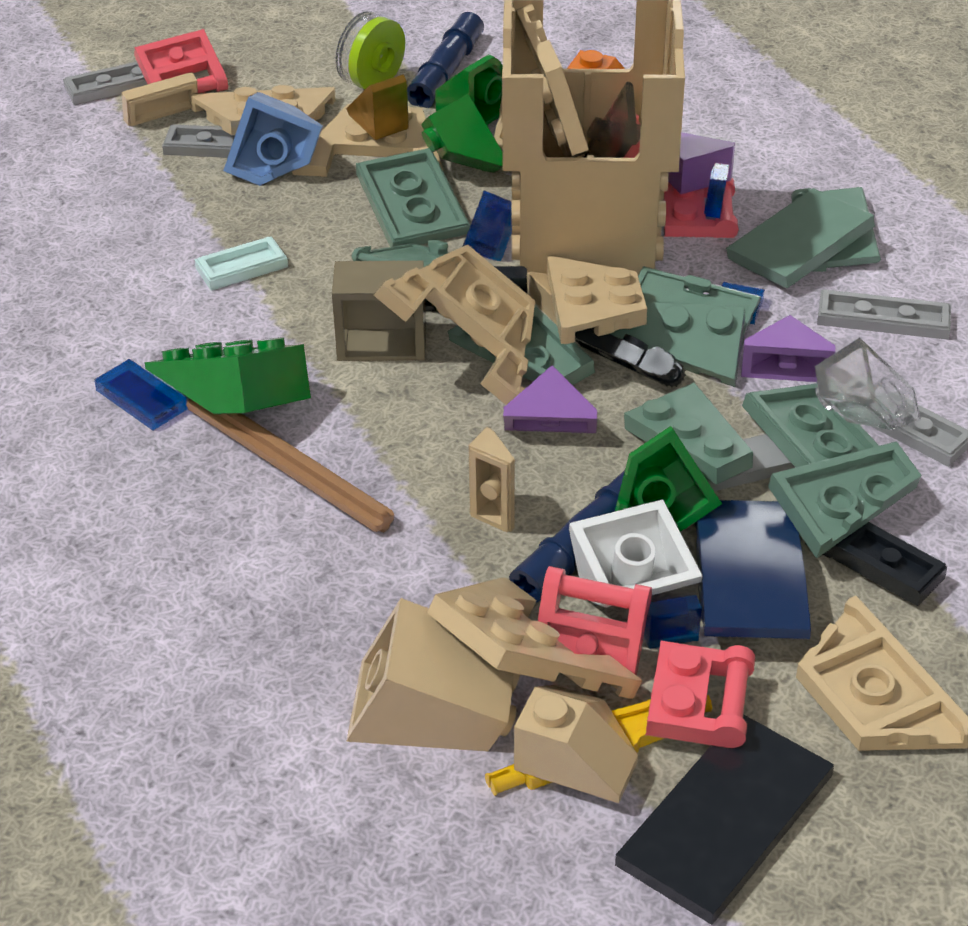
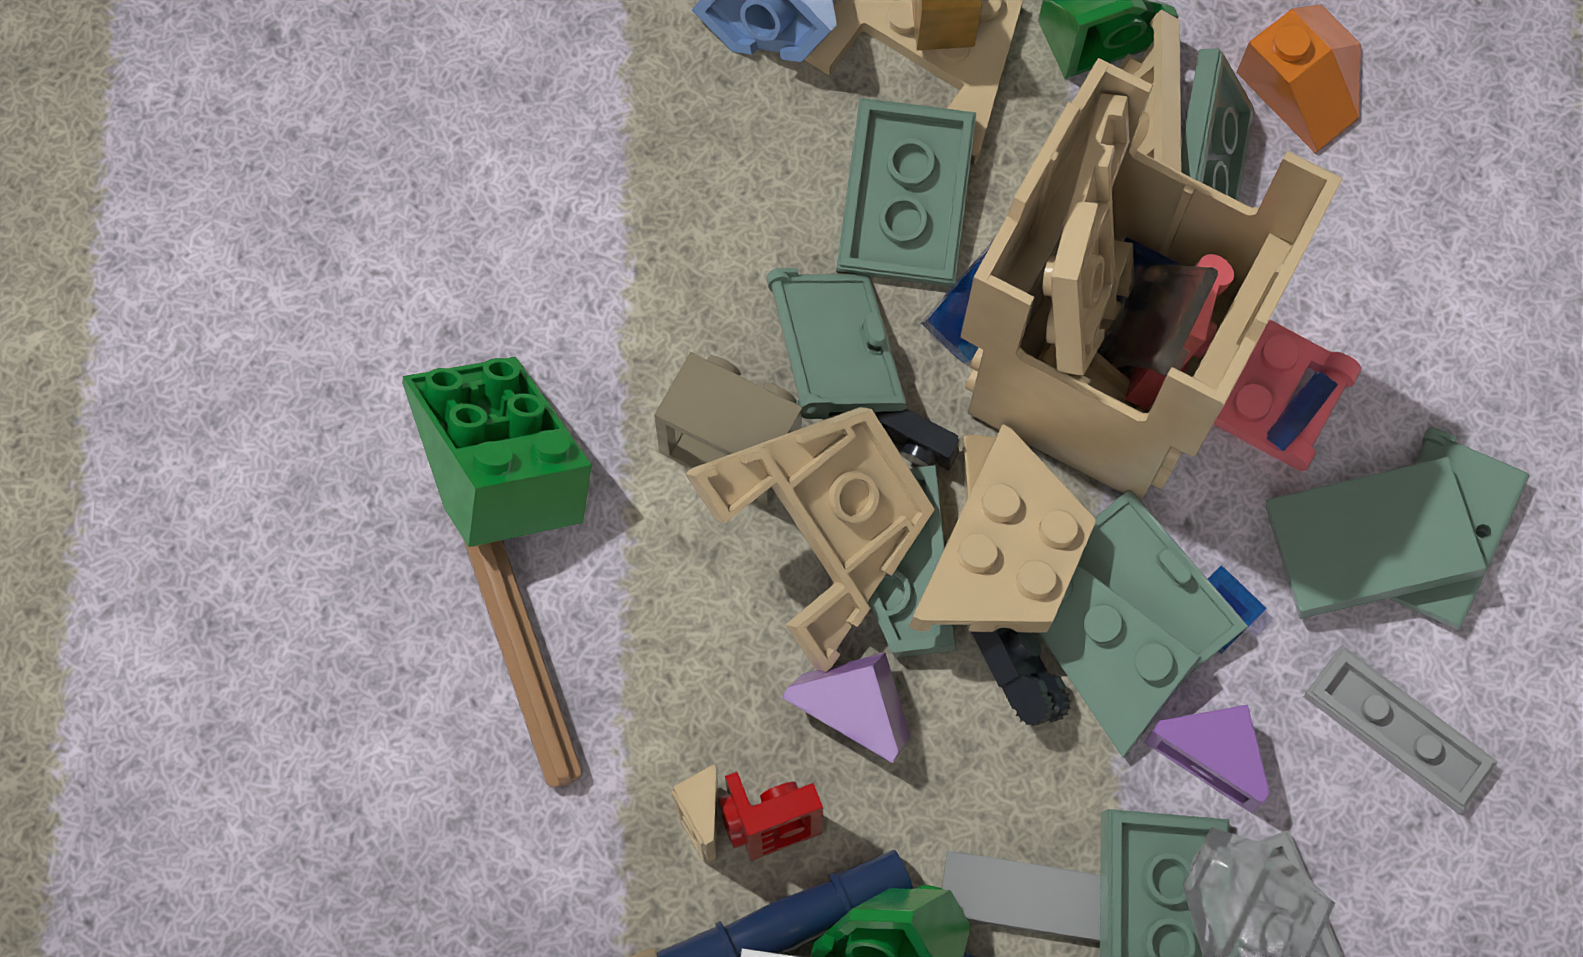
camera: 25 degrees right, 30 degrees up
(141, 394) = (379, 385): clear blue tile -> none
(241, 263) = (629, 208): light aqua tile -> none
(462, 136) = (1017, 105): green slope -> none
(542, 464) = (780, 820): none -> red bracket
(696, 161) = (1310, 335): medium lavender slope -> none
(701, 428) = (1006, 831): sand green wing -> none

